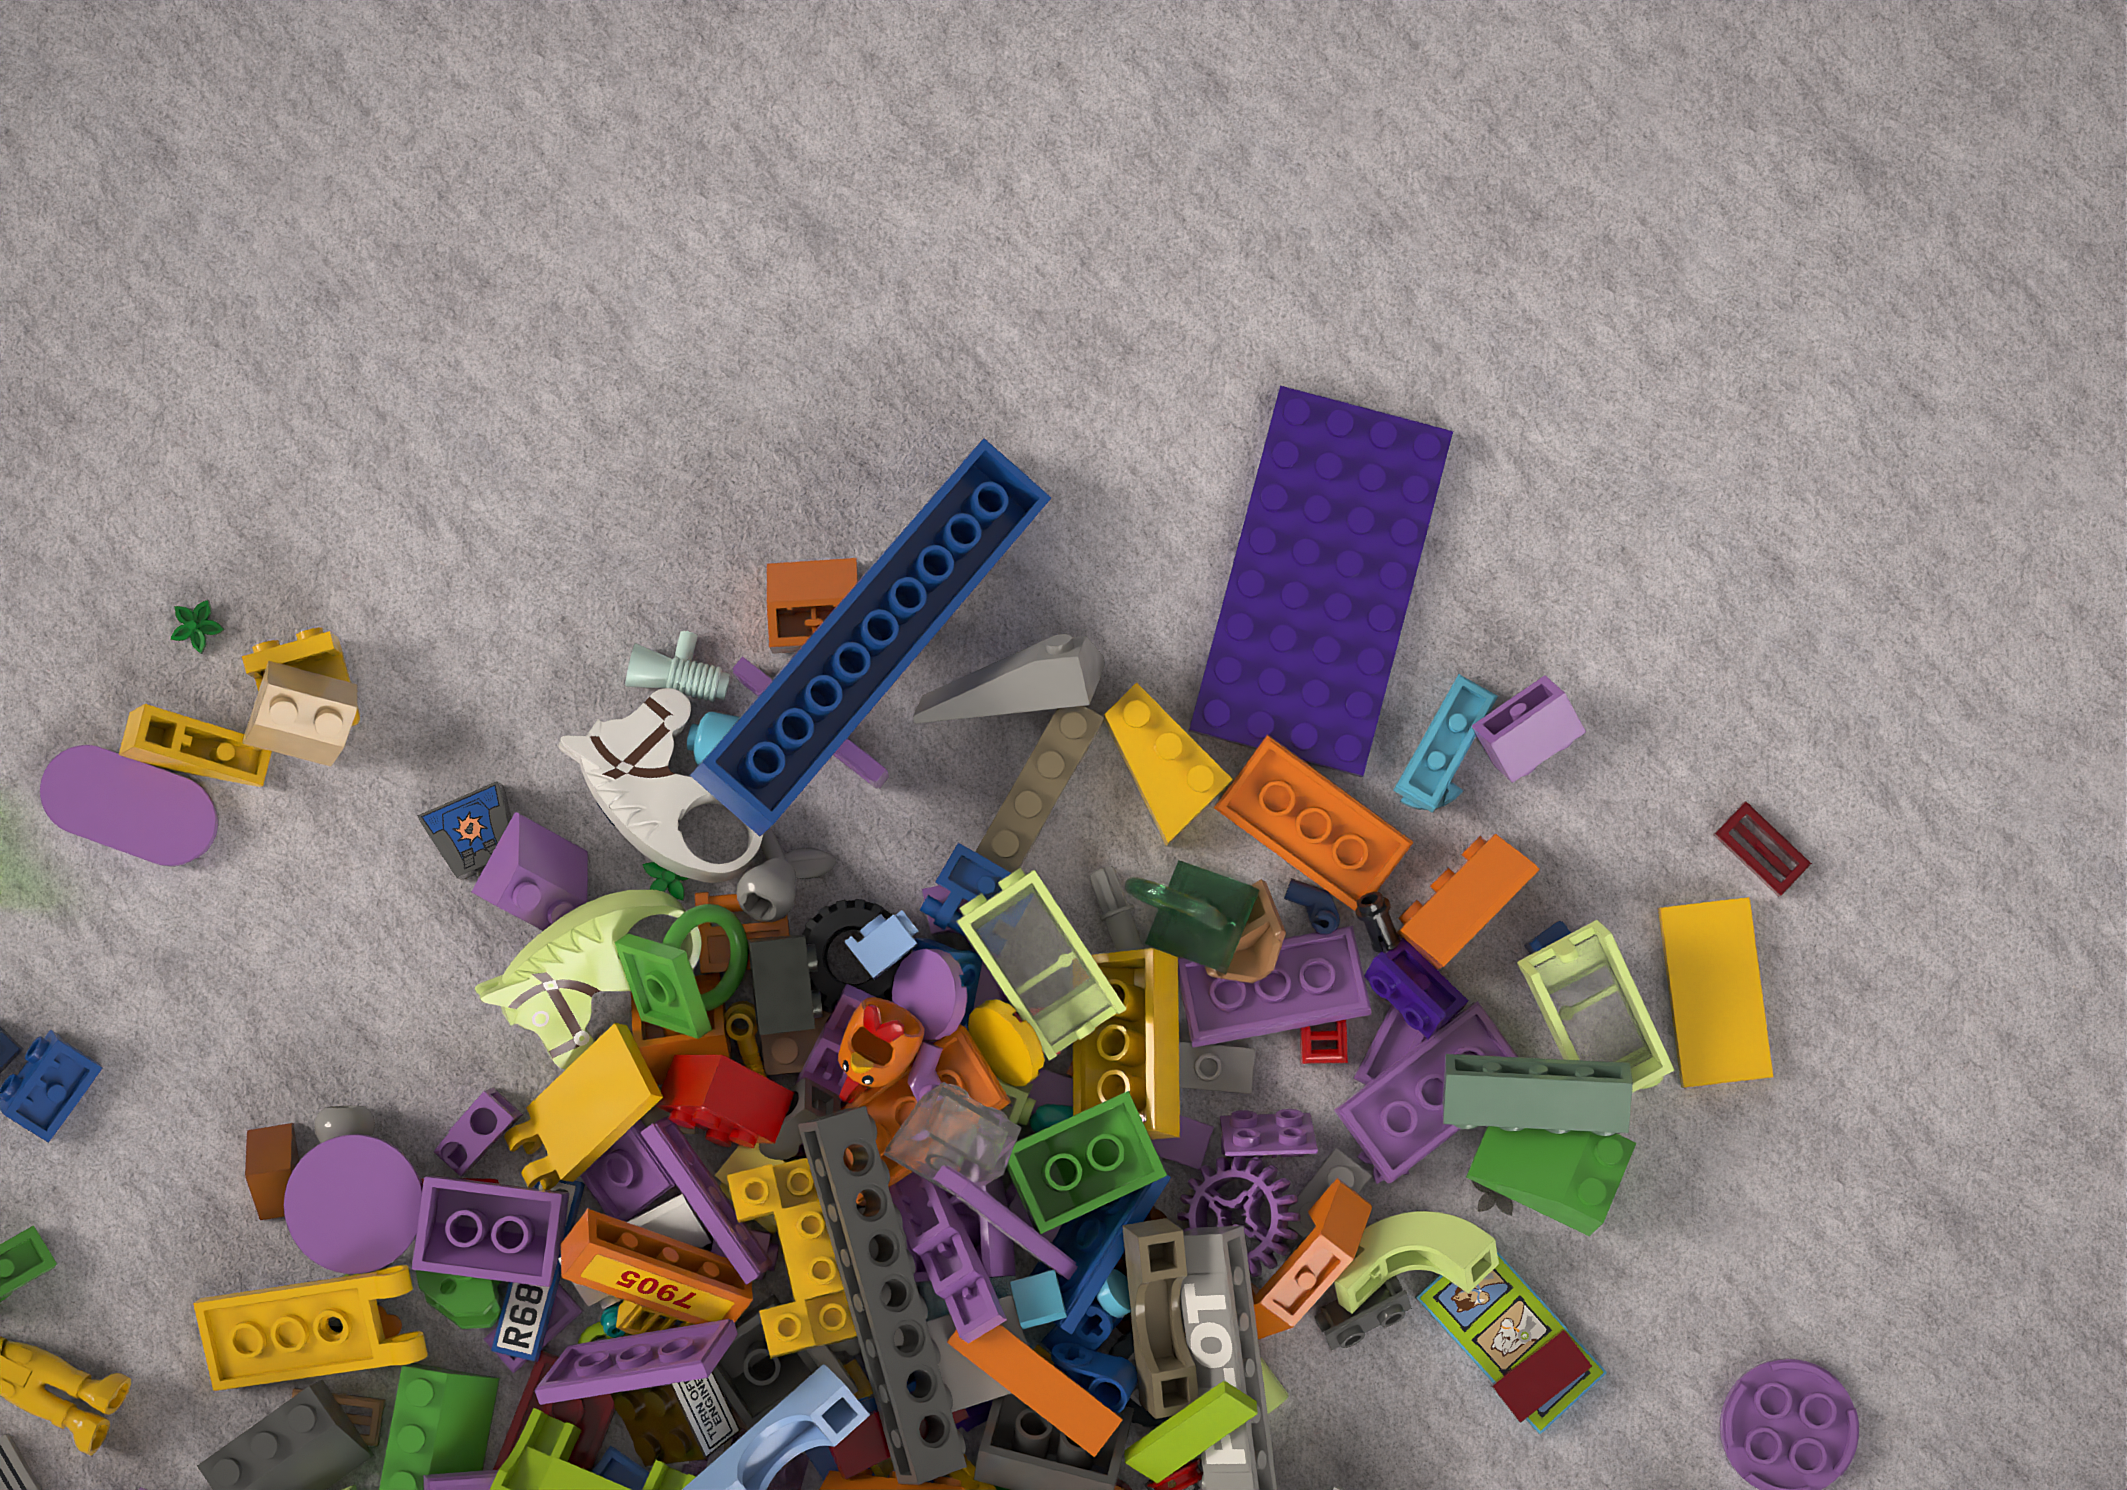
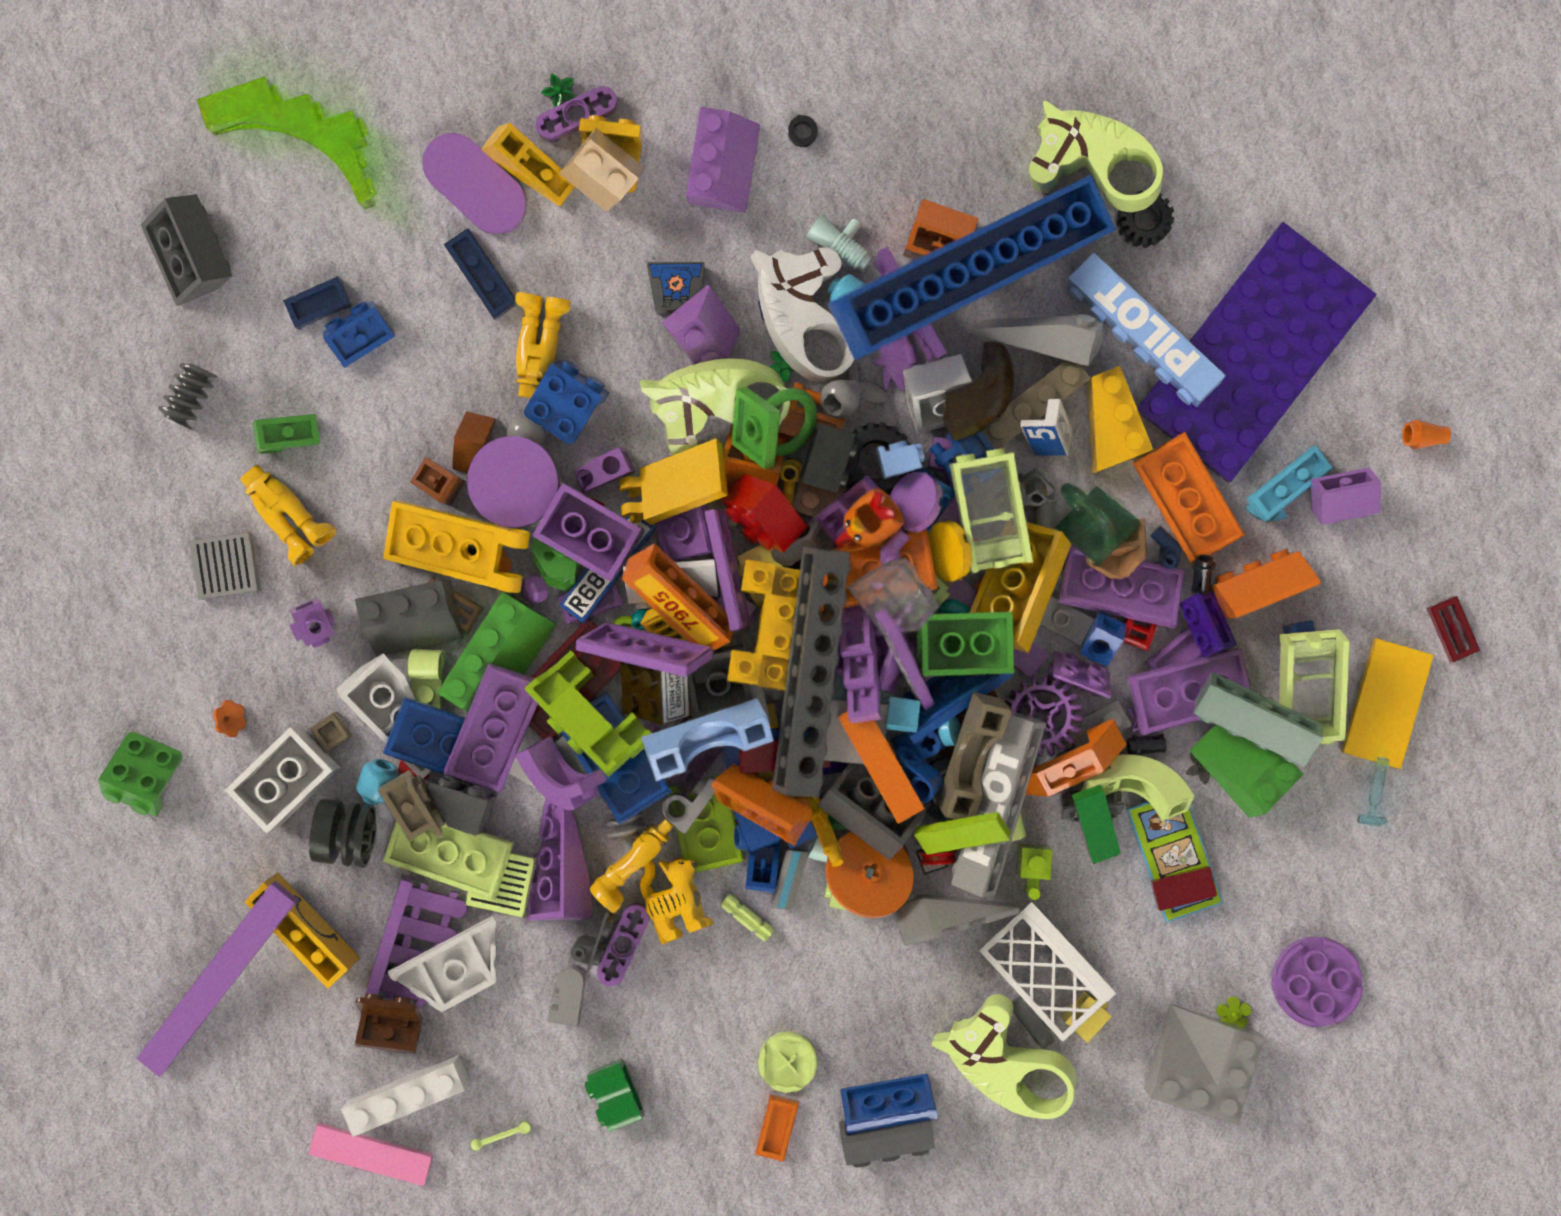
camera: 30 degrees right, 5 degrees up
(189, 927) = (481, 273): none -> dark blue tile
(213, 647) = (564, 108): none -> medium lavender beam
(246, 1248) = (437, 482): none -> dark orange slope
(312, 1019) = (535, 358): none -> yellow piece
(382, 1057) = (565, 401): none -> blue bracket
(447, 1343) = (534, 589): none -> medium lavender tile
(465, 628) = (722, 160): none -> medium lavender slope
(568, 554) = (802, 119): none -> black piece
(828, 803) = (896, 358): none -> medium lavender piece
(902, 827) = (927, 388): none -> white brick
(966, 388) = (1095, 142): none -> yellowish green animal
(967, 808) = (984, 399): none -> dark brown brick
(1083, 818) = (1050, 435): none -> panel
(1087, 906) = (1034, 488): none -> dark grey hips
(1088, 435) = (1147, 237): none -> black tyre
(1152, 618) = (1144, 330): none -> light blue brick
(1277, 1057) = (1104, 629): none -> blue brick
(1317, 1434) = (1033, 863): none -> lime brick
(1378, 1337) = (1096, 824): none -> green tile
(1403, 1194) = (1146, 744): none -> black pin
(1602, 597) = (1423, 434): none -> orange cone
(1754, 1126) = (1376, 794): none -> clear light blue piece

